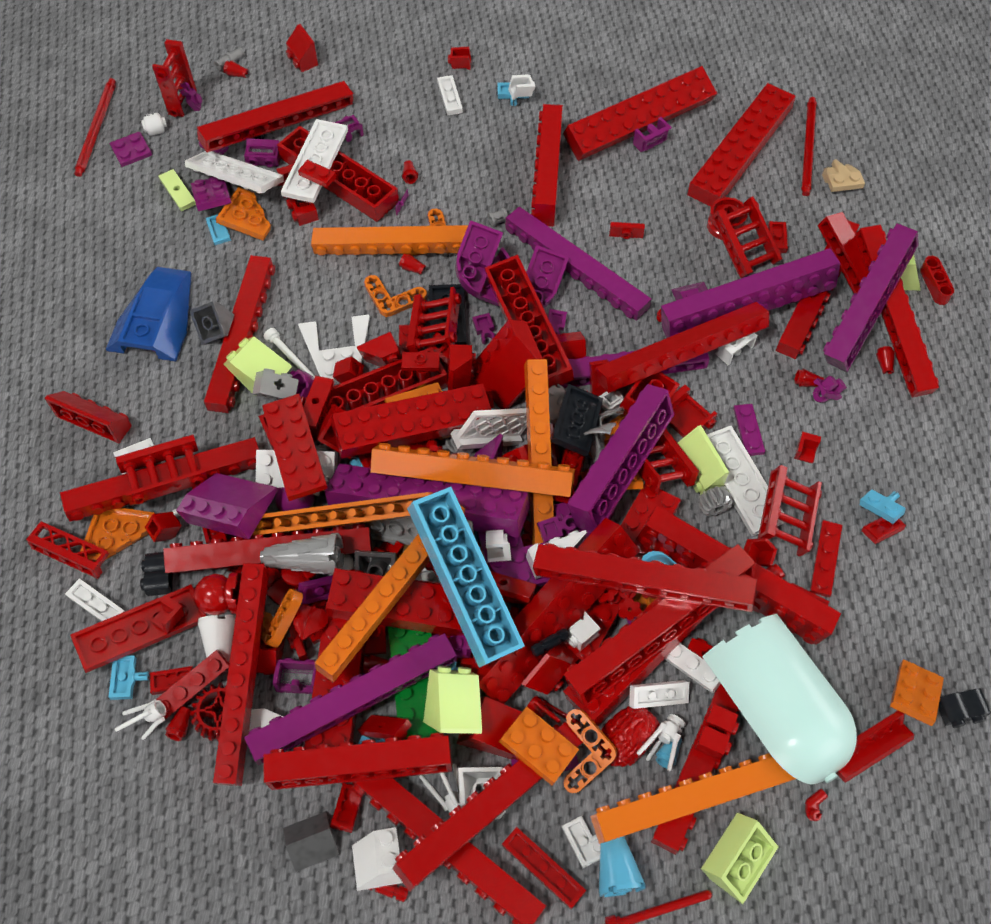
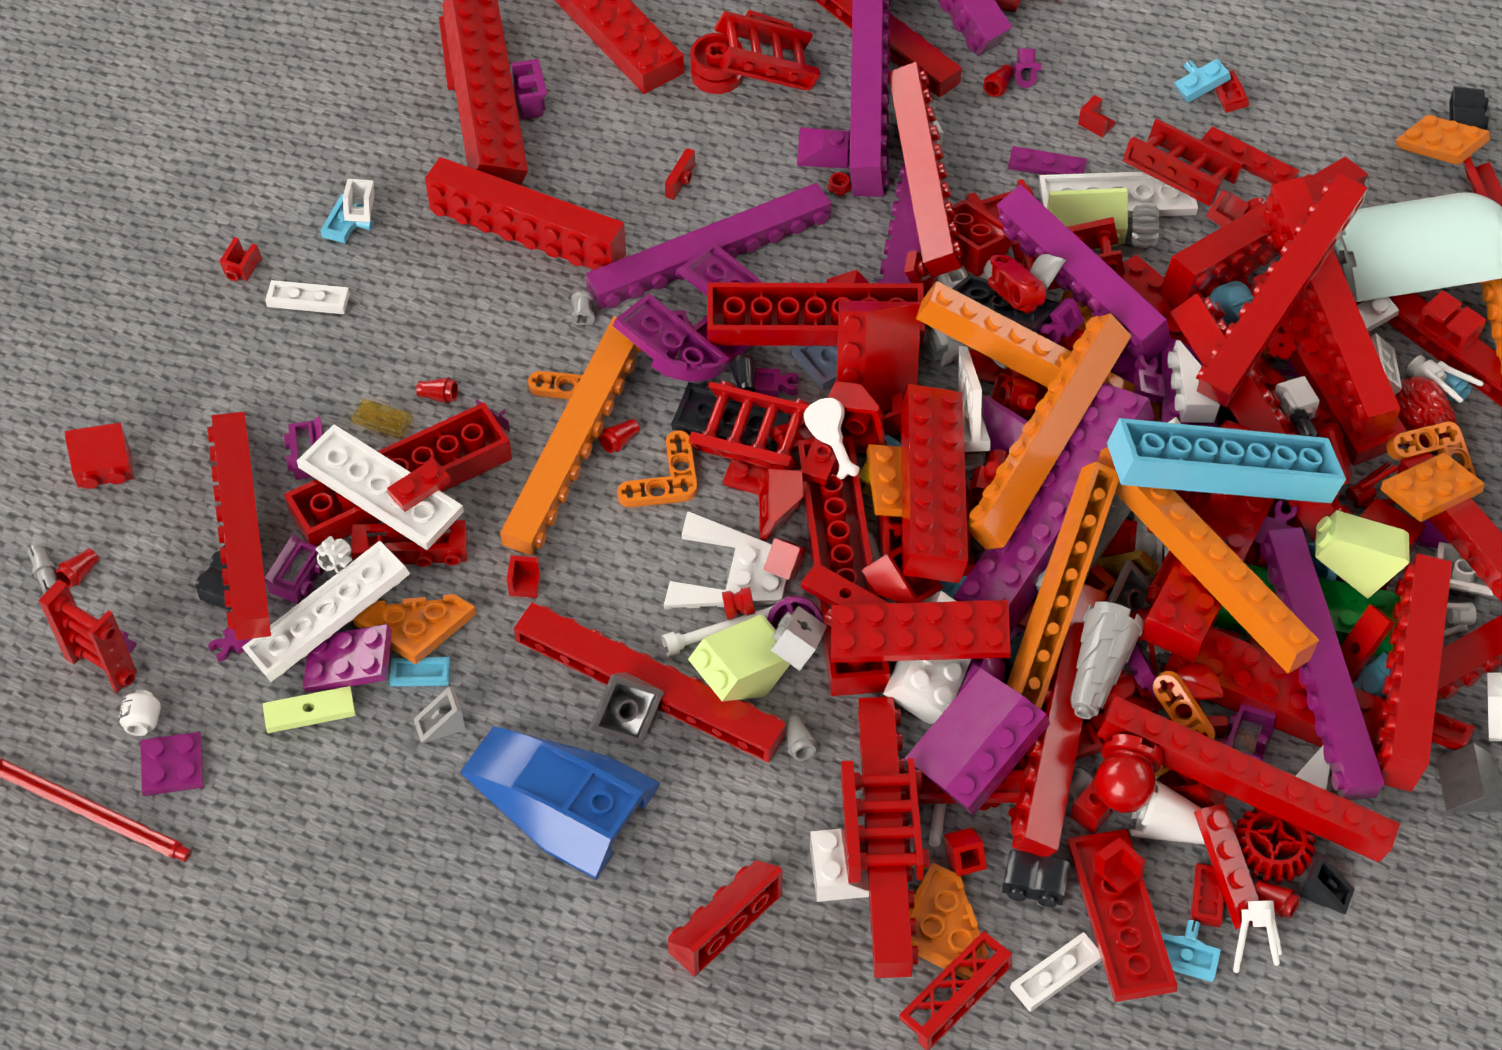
camera: 70 degrees left, 5 degrees down
(189, 248) = (440, 717): none -> light grey slope
(194, 754) = (1327, 886): none -> black slope
(223, 419) = (799, 740): none -> light grey cone
(269, 160) = (333, 554): none -> white gear
(291, 250) = (523, 576): none -> red panel
(306, 357) = (738, 603): none -> red wheel
(381, 156) = (382, 418): none -> clear yellow plate
(438, 349) = (825, 422): none -> white piece
(478, 307) = (744, 371): none -> black cone
(574, 456) = (1065, 321): none -> magenta plate
(589, 416) = (1016, 284): none -> red piece

